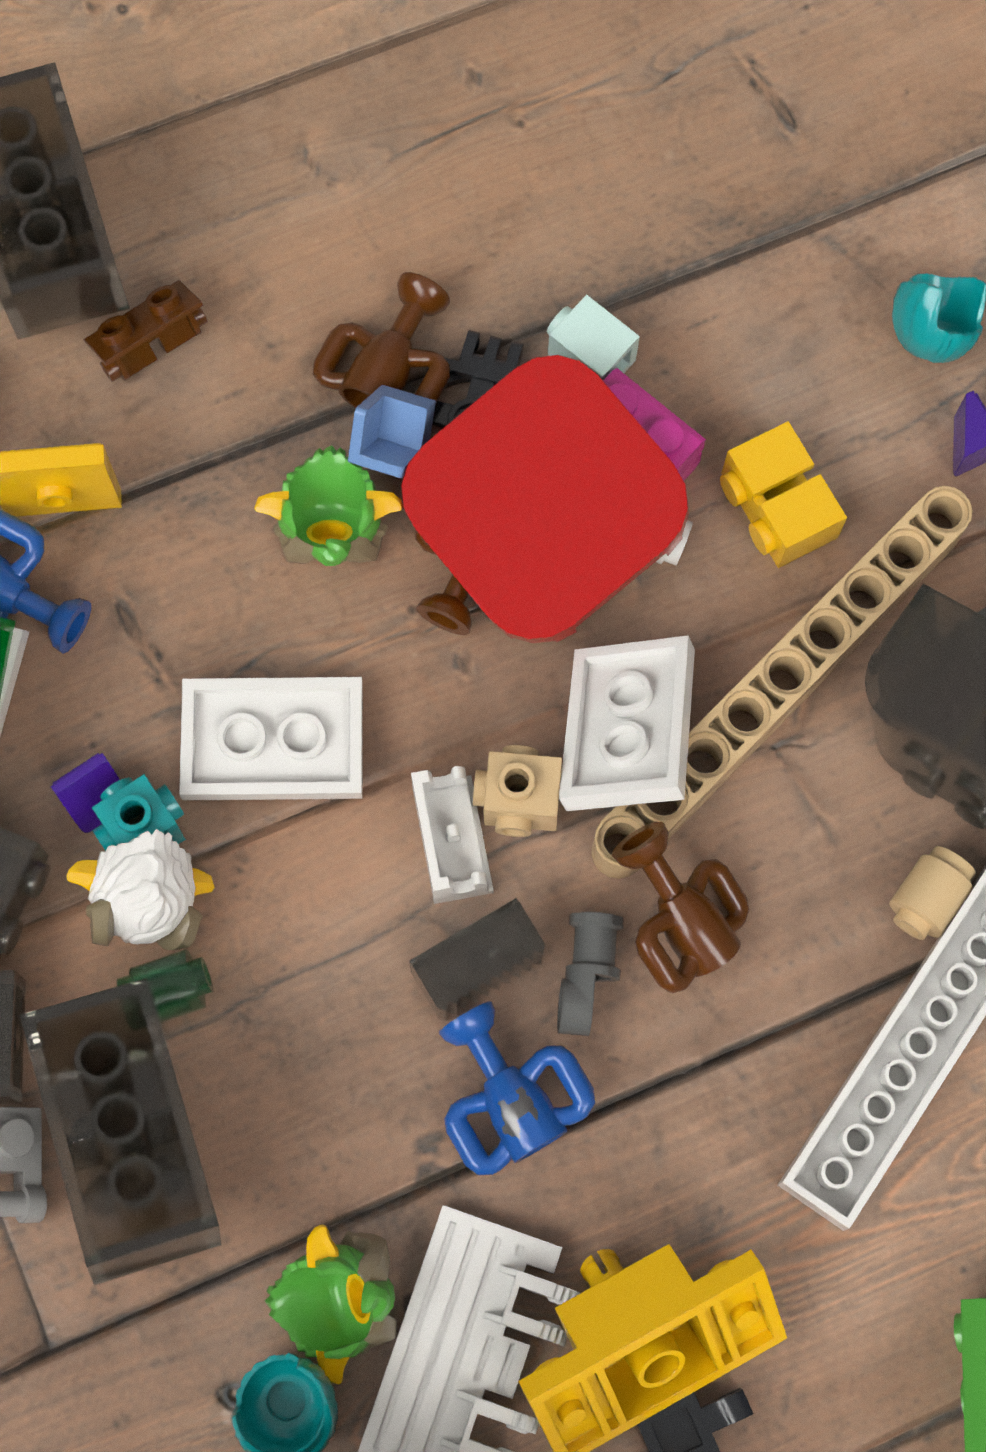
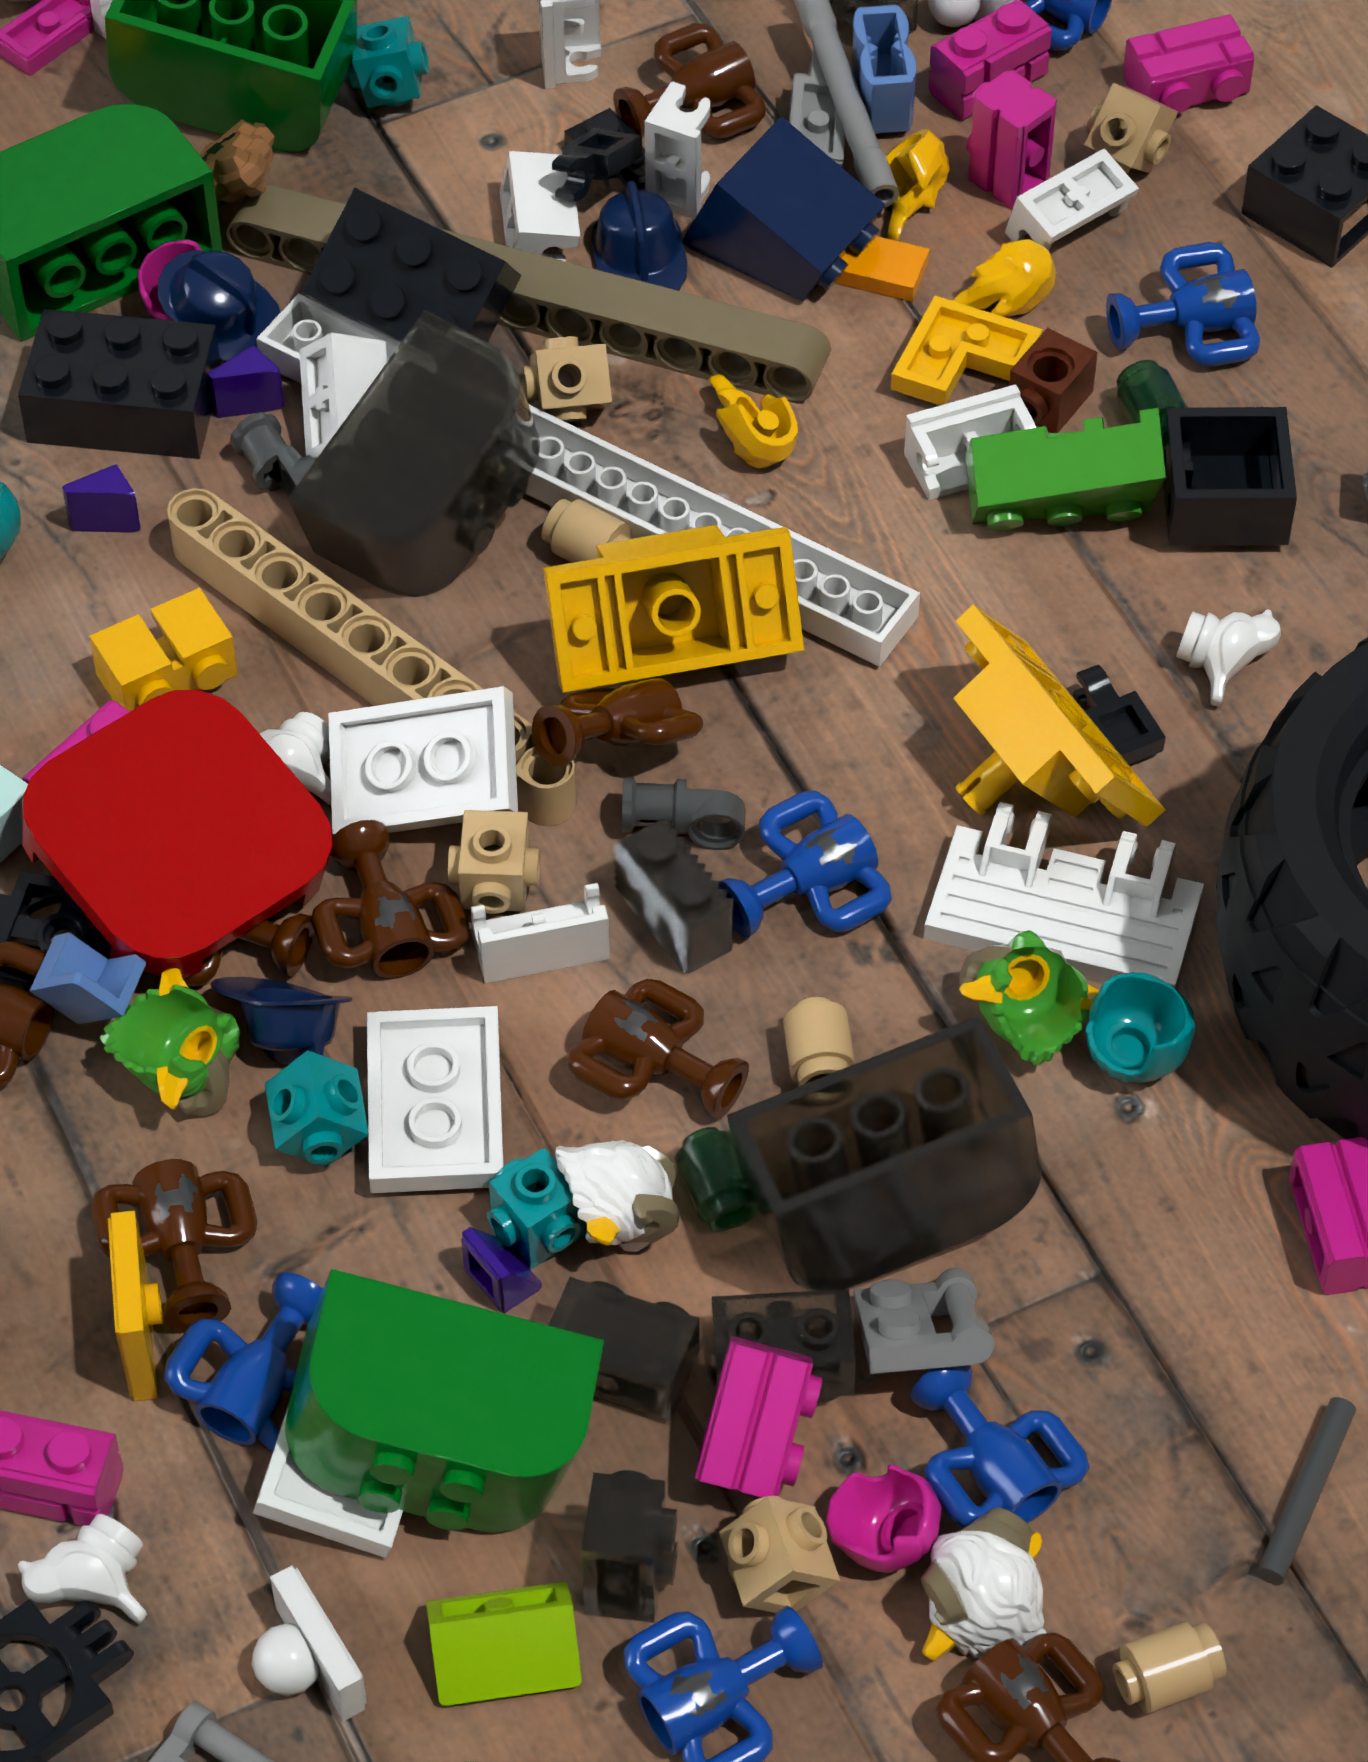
camera: 90 degrees left, 20 degrees down
(149, 521) = (176, 1226): none -> reddish brown piece
(252, 632) = (316, 1109): none -> teal brick
(300, 1091) = (817, 1039): none -> tan brick
(312, 931) = (647, 1045): none -> reddish brown piece
(372, 601) = (283, 1016): none -> dark blue piece
(475, 695) = (388, 917): none -> reddish brown piece
(662, 607) = (304, 749): none -> white animal
(813, 964) = (673, 605): none -> yellow brick

